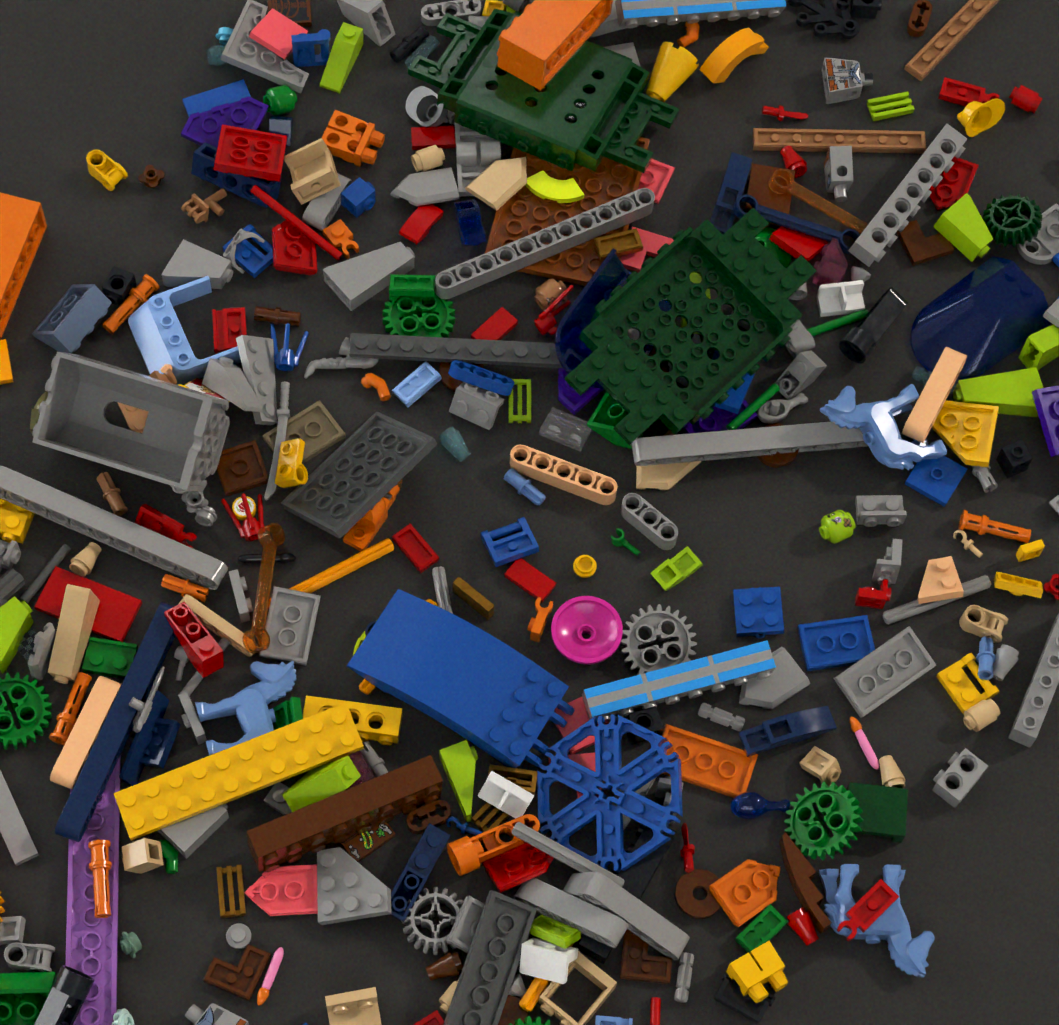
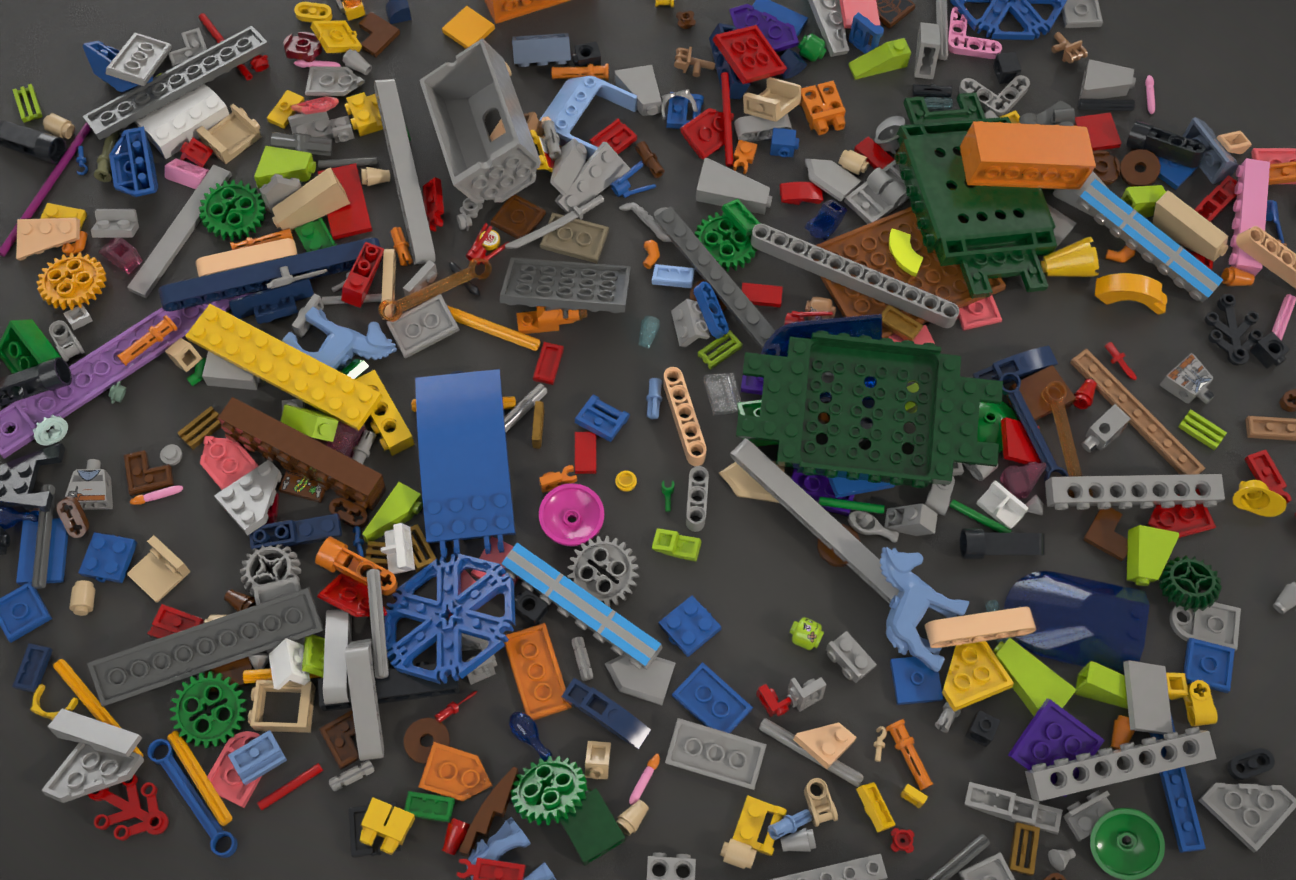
camera: 55 degrees right, 0 degrees up
(111, 494) = (432, 161): medium nougat axle -> none
(195, 378) = (551, 139): none -> light grey pin
(290, 468) = (541, 240): yellow plate -> none
(499, 181) = (875, 215): tan tile -> none

